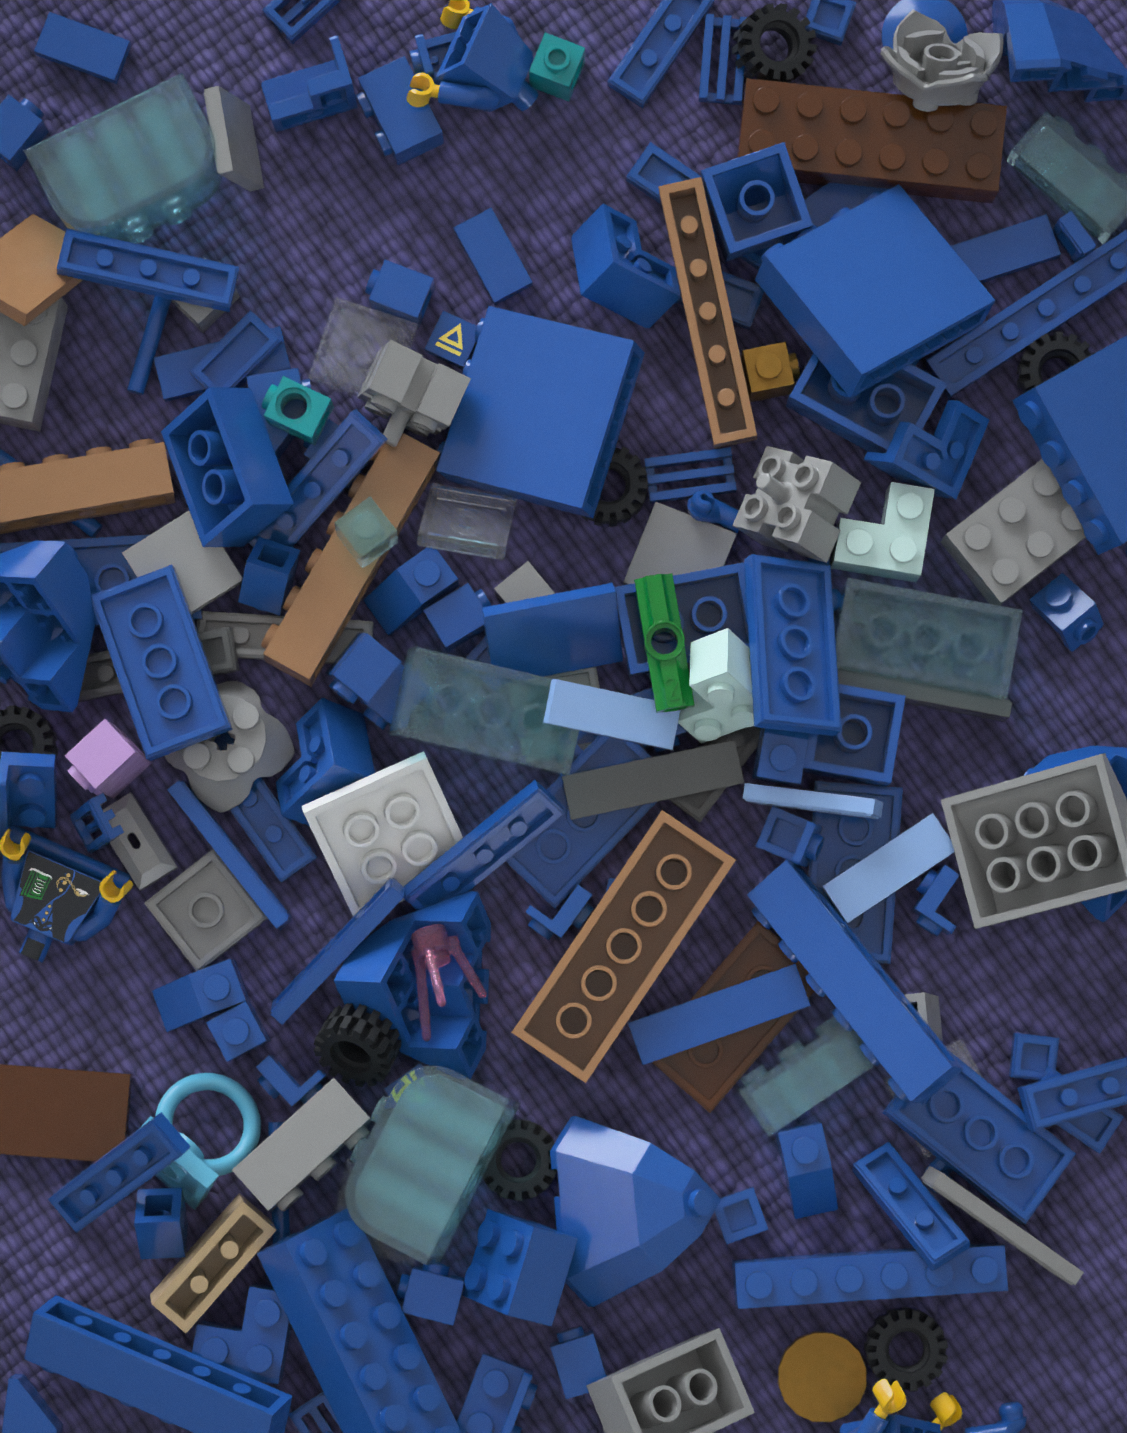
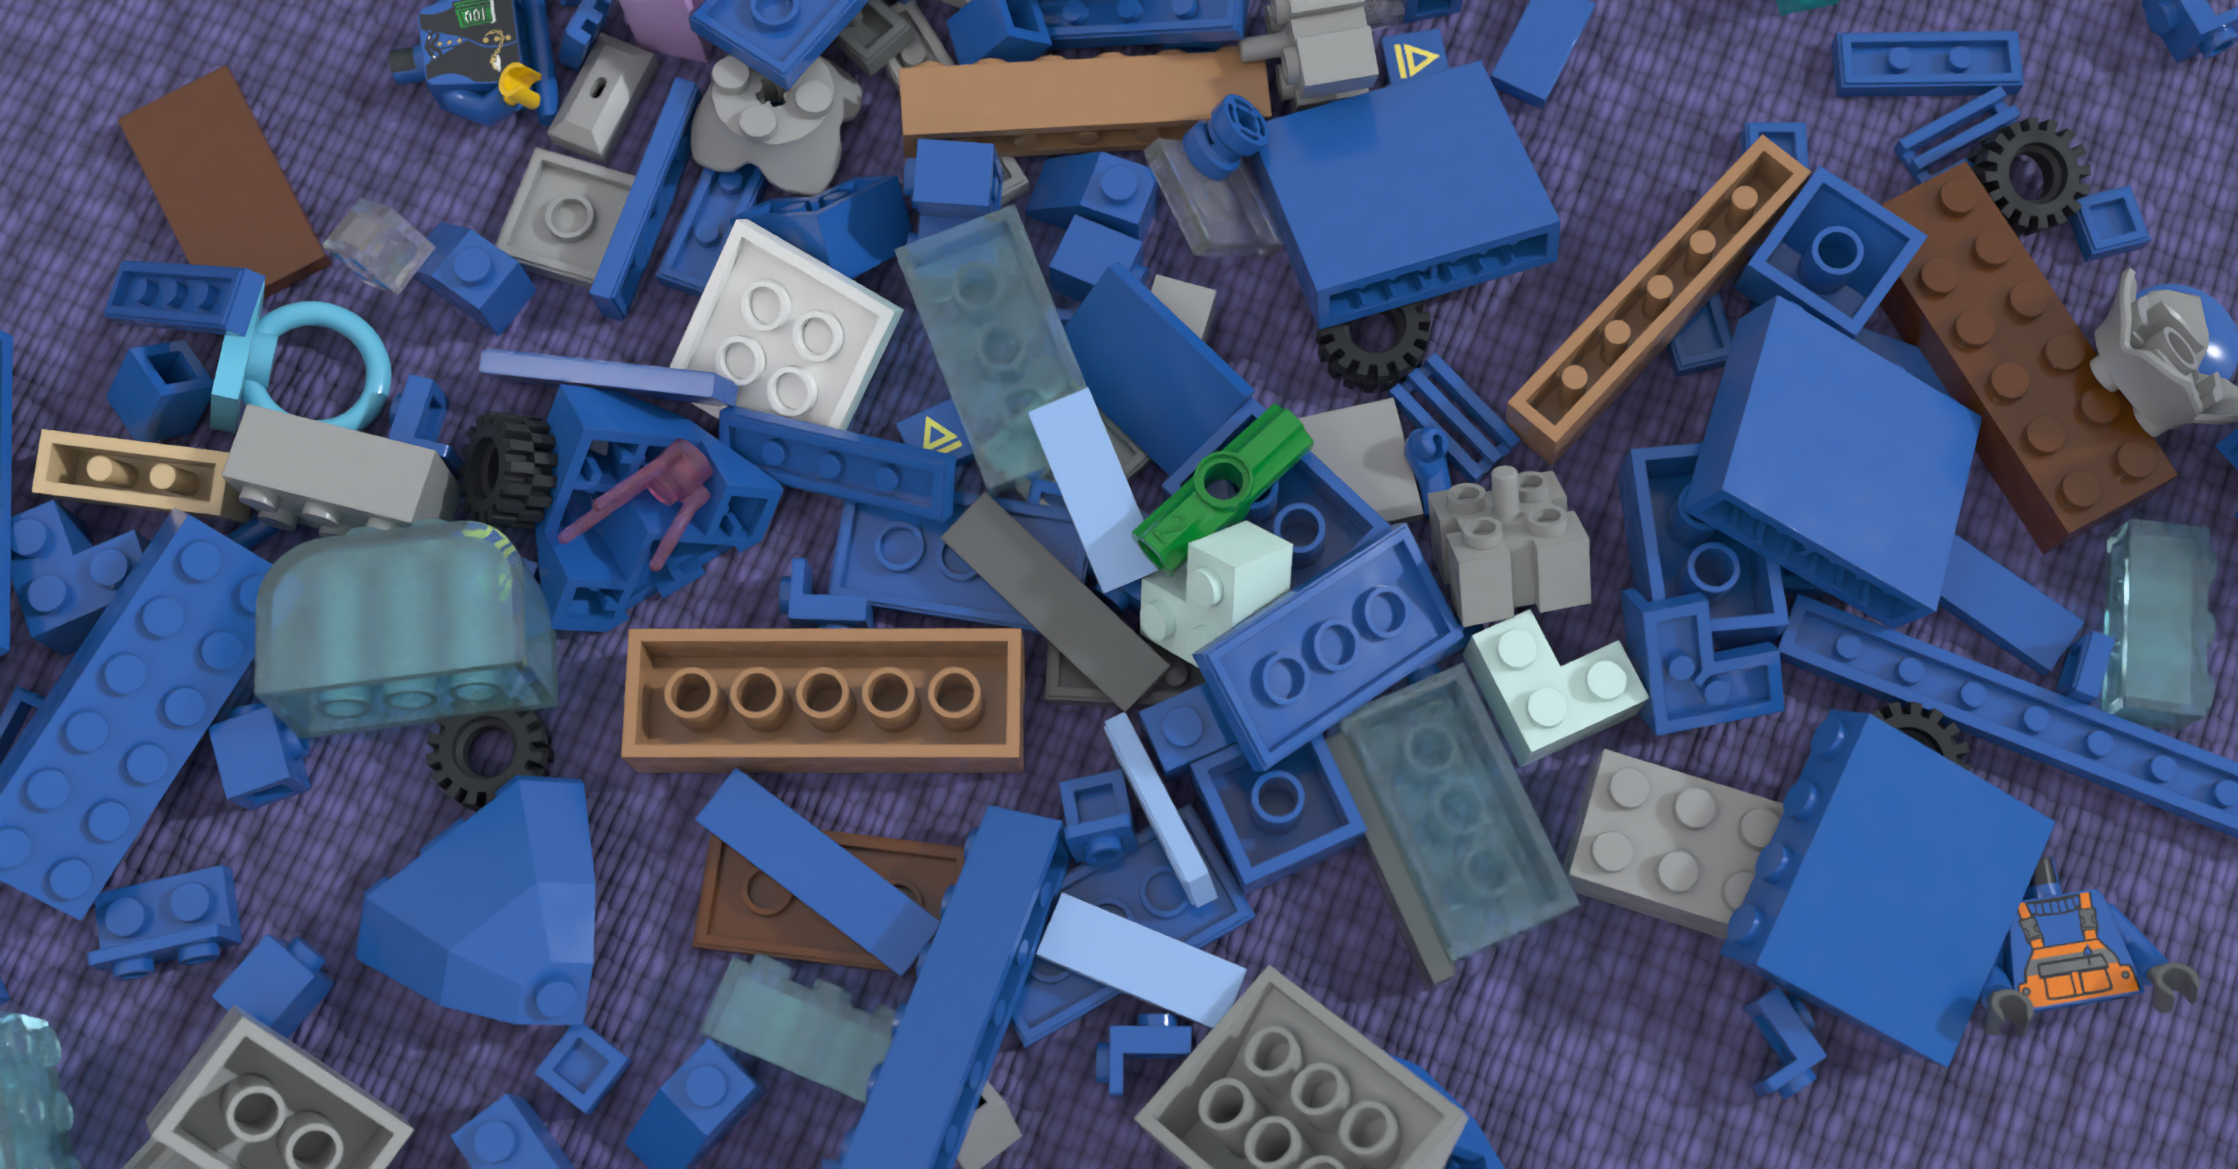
camera: 60 degrees right, 10 degrees down
(153, 1037) = (379, 246): none -> clear brick
(238, 1031) = (445, 335): blue brick -> none
(366, 532) = (1115, 79): clear light blue brick -> none
(440, 489) = (1229, 134): none -> blue wheel
(498, 781) = (937, 430): none -> blue tile
(519, 1267) = (342, 829): blue brick -> none
(617, 270) = (1629, 181): blue panel -> none
(769, 371) = (1642, 415): pearl gold brick -> none
(1068, 611) = (1620, 977): blue bracket -> none

